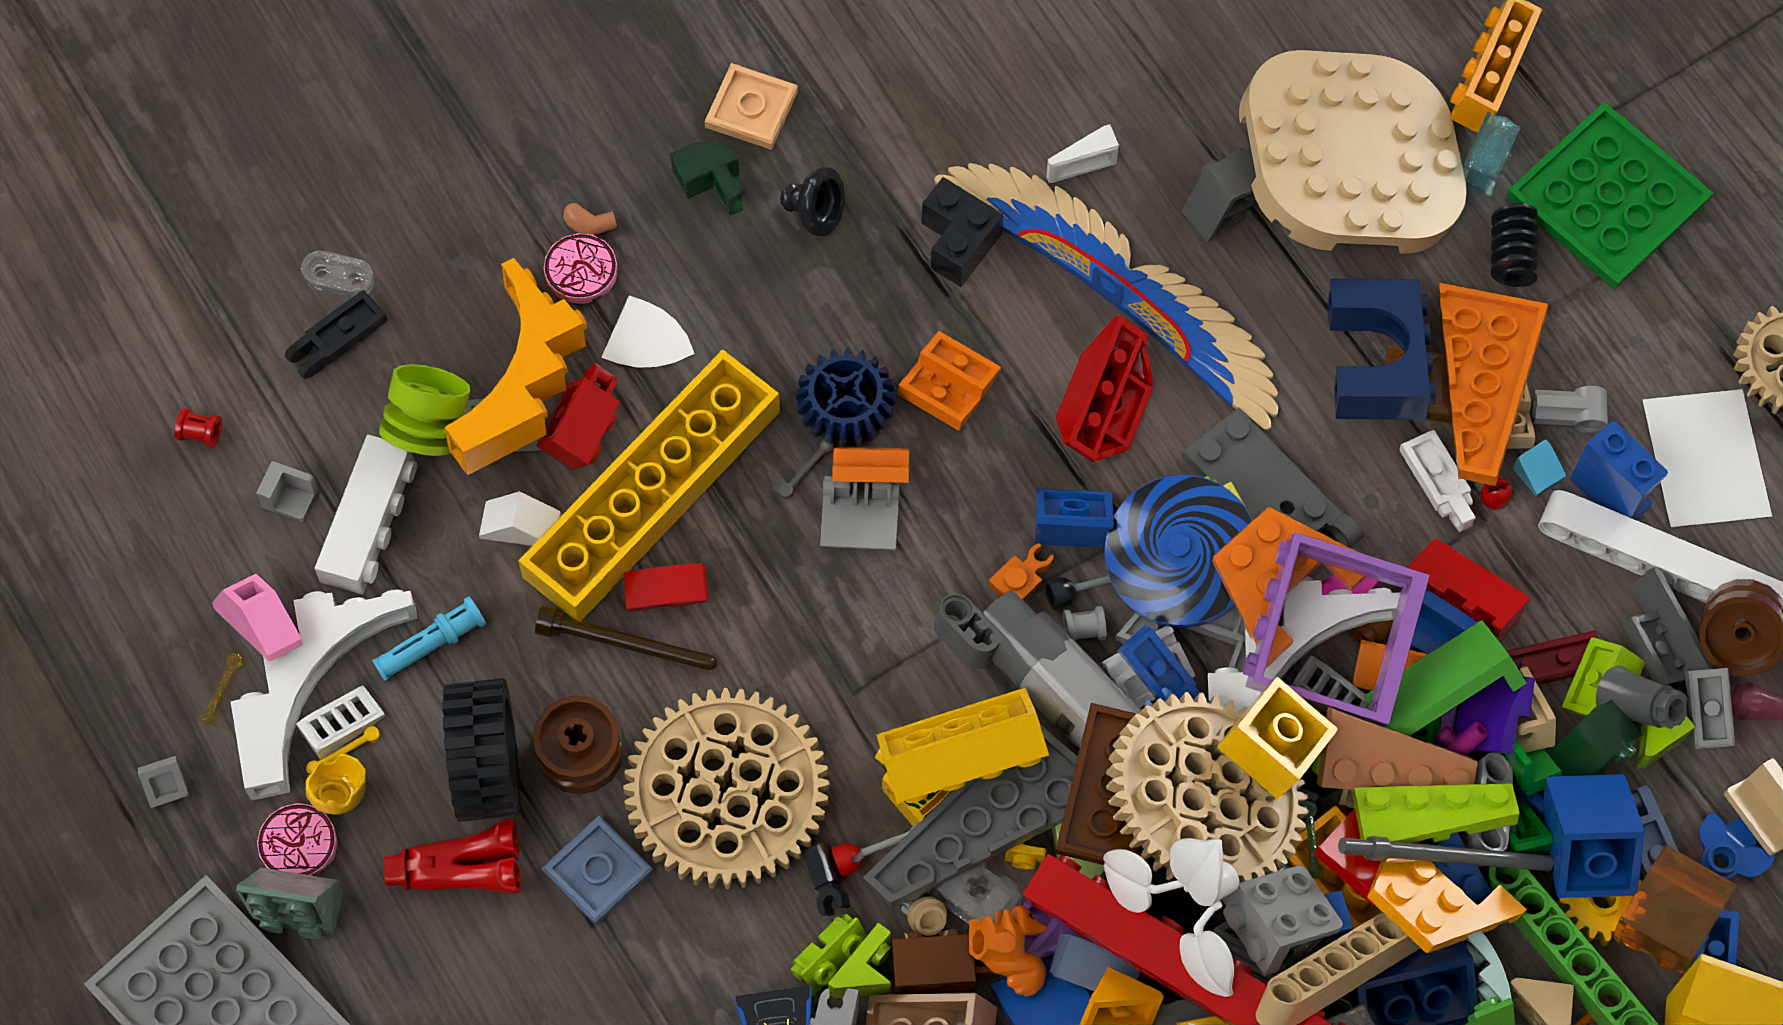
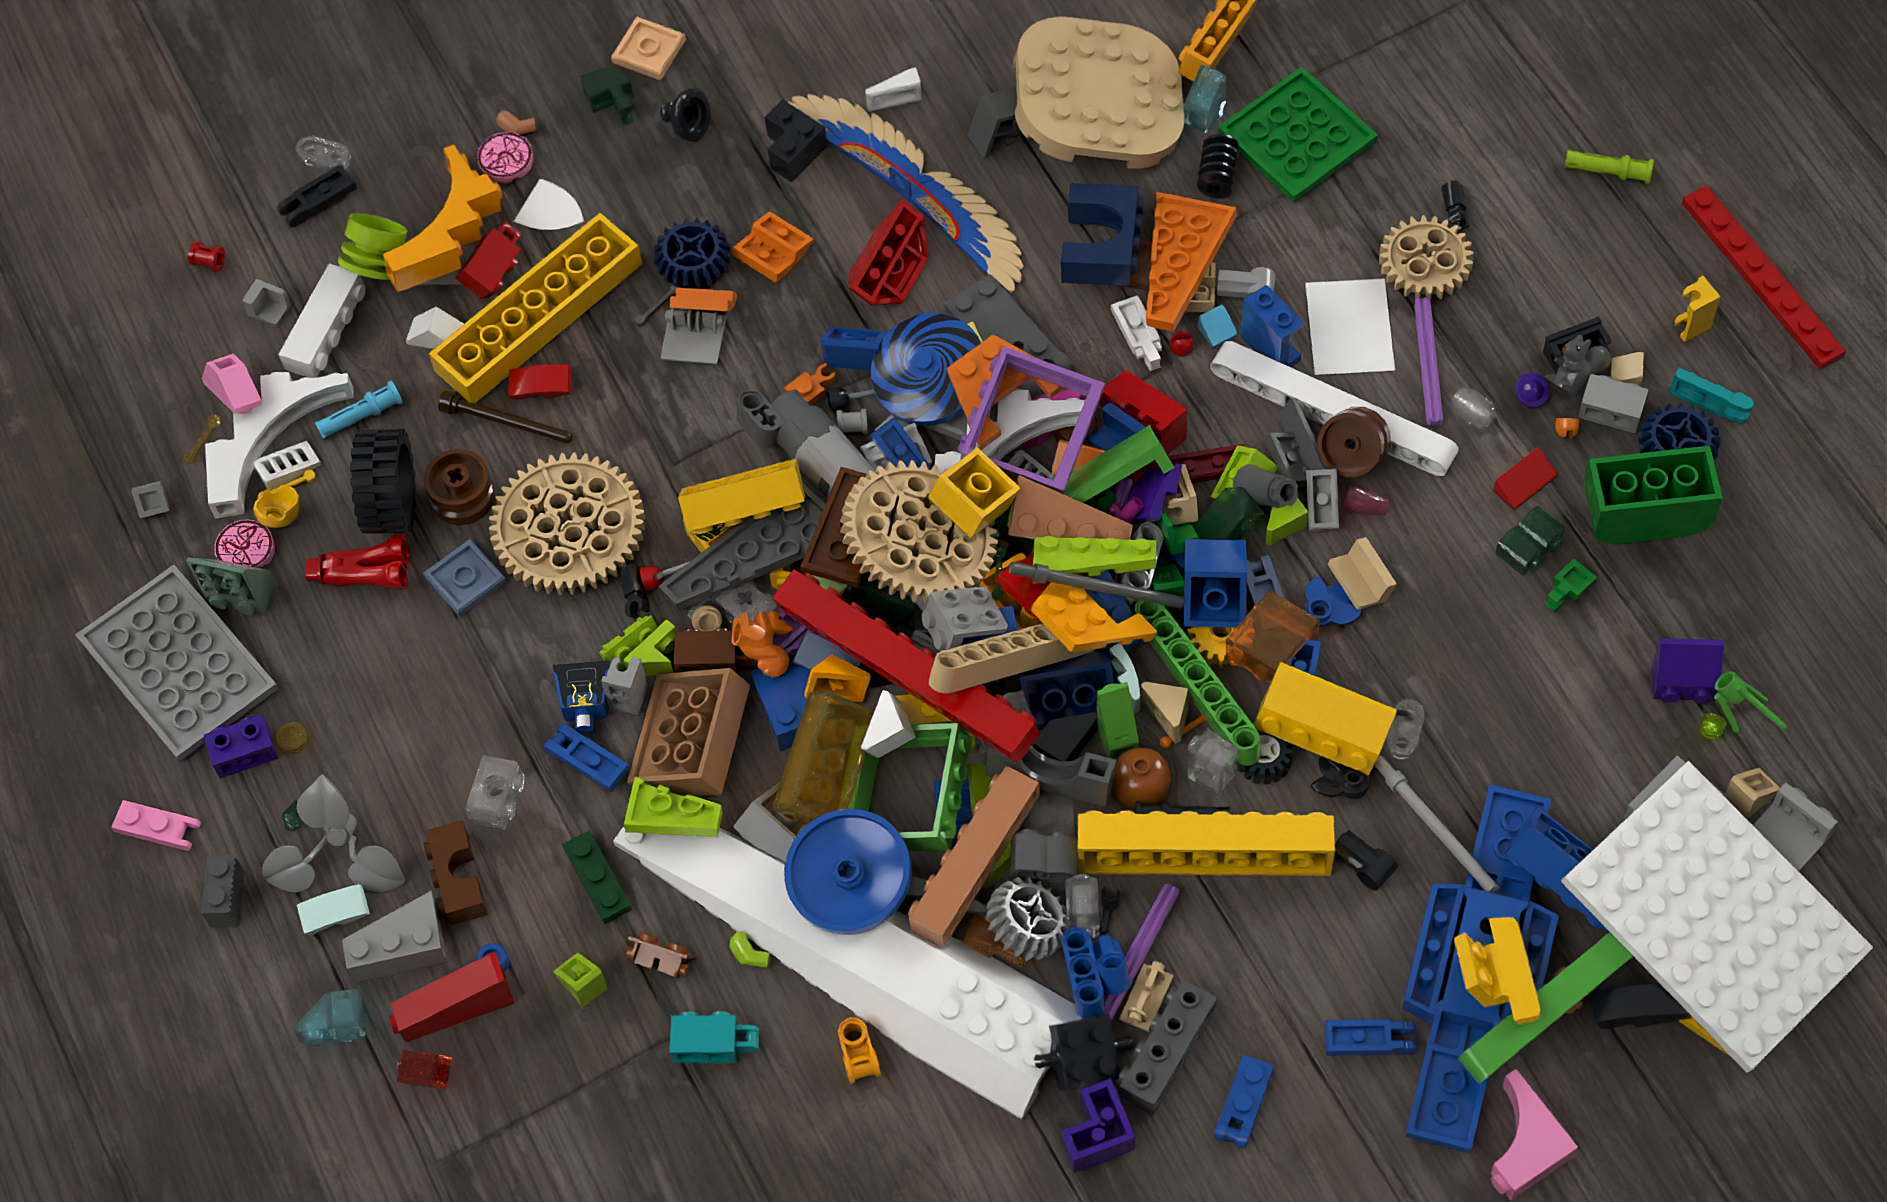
camera: 10 degrees right, 5 degrees down
(1208, 879) = (885, 563): white plant -> none

